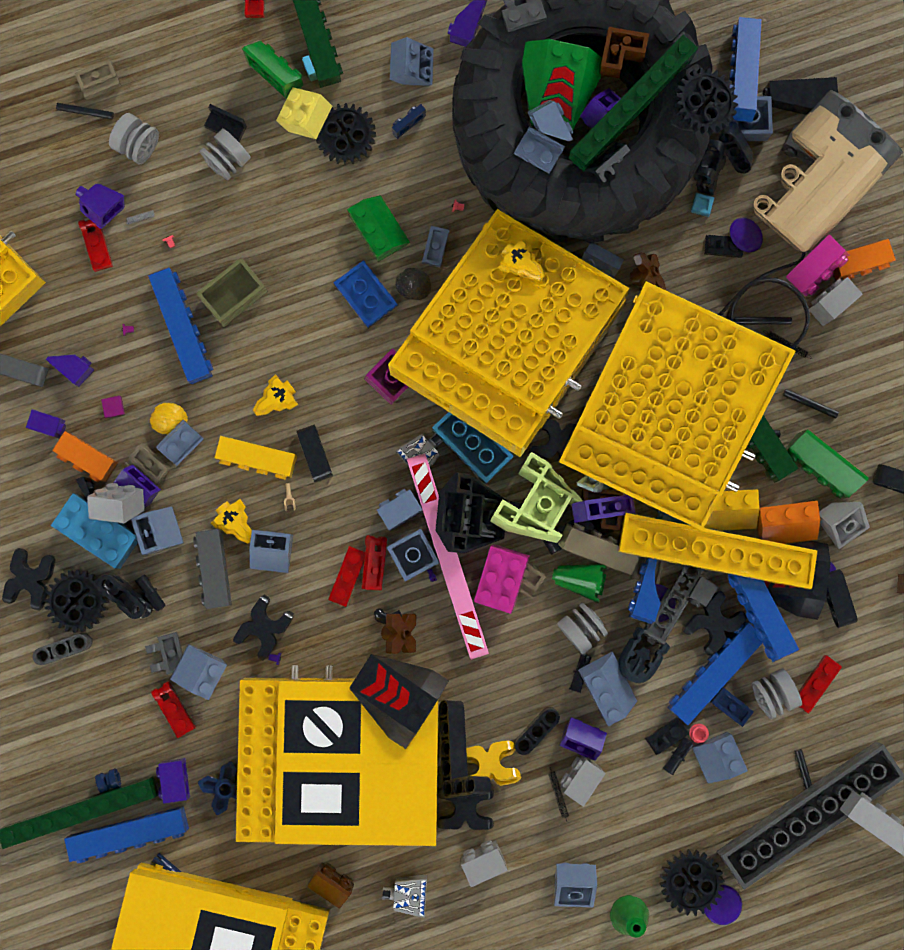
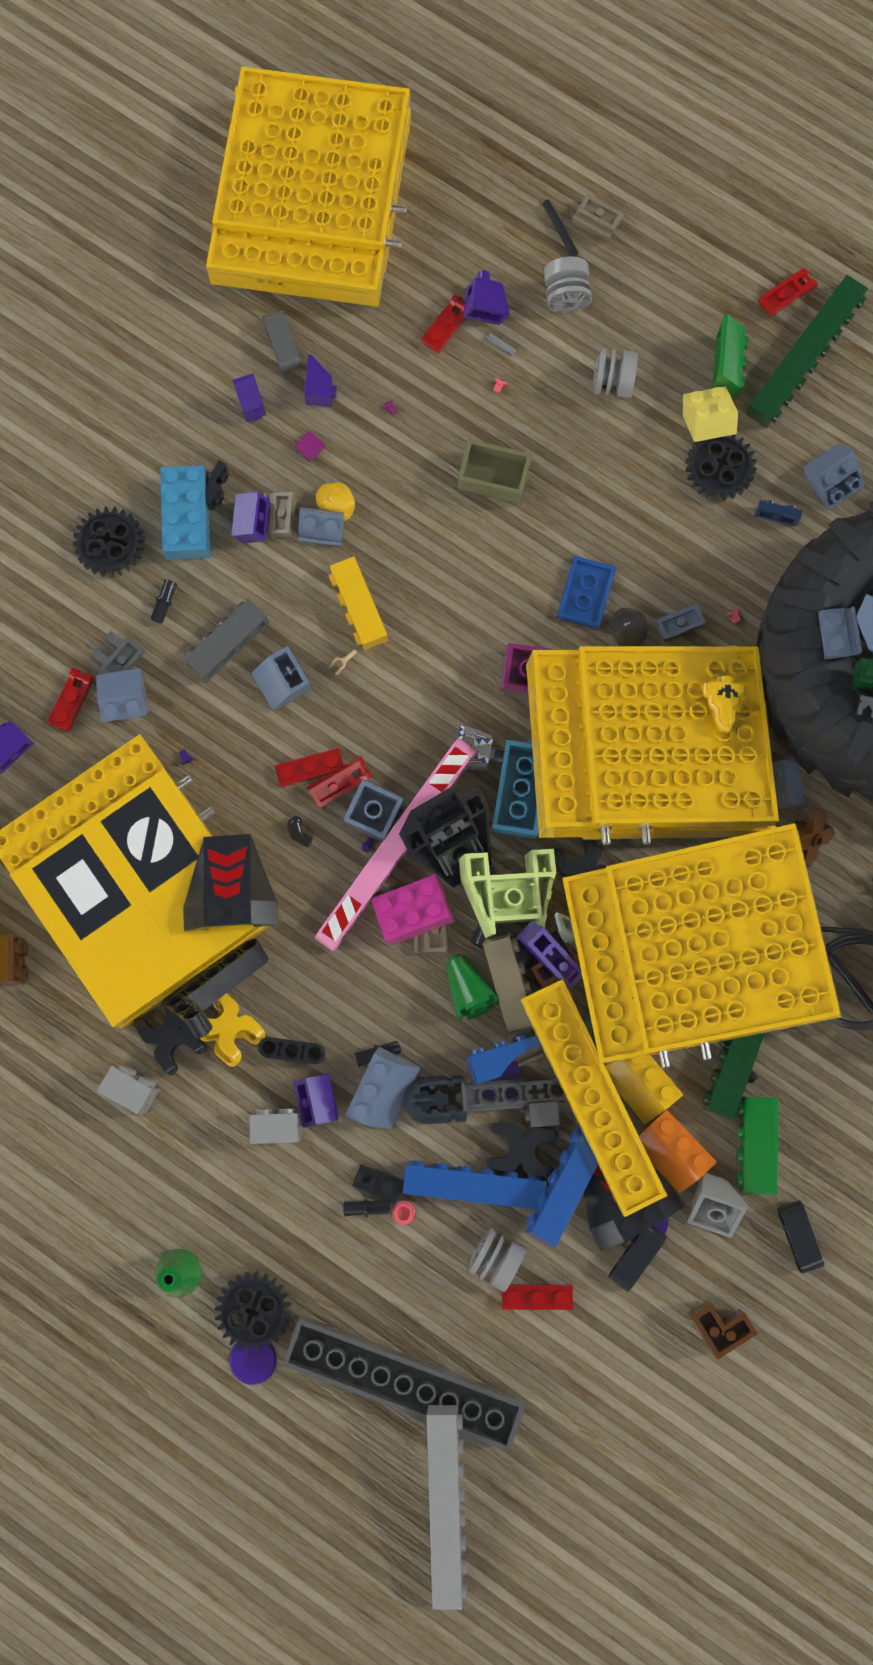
camera: 60 degrees right, 5 degrees down
(28, 579) = (98, 486): black piece -> none
(53, 652) = (48, 554): dark grey beam -> none
(84, 457) = (245, 454): orange brick -> none
(116, 503) = (222, 507): light grey brick -> none
(124, 596) = (143, 579): black piece -> none
(157, 530) = (224, 564): sand blue slope -> none
(180, 325) = (428, 450): blue brick -> none
(212, 785) = (25, 784): dark blue plant -> none
(221, 119) = (648, 356): black panel -> none
(233, 520) = (285, 625): yellow rock -> none
(263, 627) = (205, 725): black piece -> none
(275, 397) = (428, 581): yellow rock -> none
(309, 68) = (755, 389): medium azure tile -> none
(314, 453) = (401, 653): black beam -> none
(378, 227) = (657, 557): green slope -> none
(398, 633) = (289, 851): reddish brown plant -> none
(399, 510) = (406, 766): sand blue brick -> none
(408, 895) = (49, 1042): torso -> none
(560, 794) = (238, 1122): black piece -> none
(575, 885) = (169, 1196): sand blue slope -> none
(582, 628) = (421, 1021): light grey wheel -> none
(719, 758) = (393, 1250): sand blue slope -> none
(732, 707) = (453, 1226): dark blue plate -> none
(788, 343) = (847, 1013): black piece -> none
(803, 768) = (444, 1344): black bar -> none
(810, 403) = (808, 1090): black bar -> none

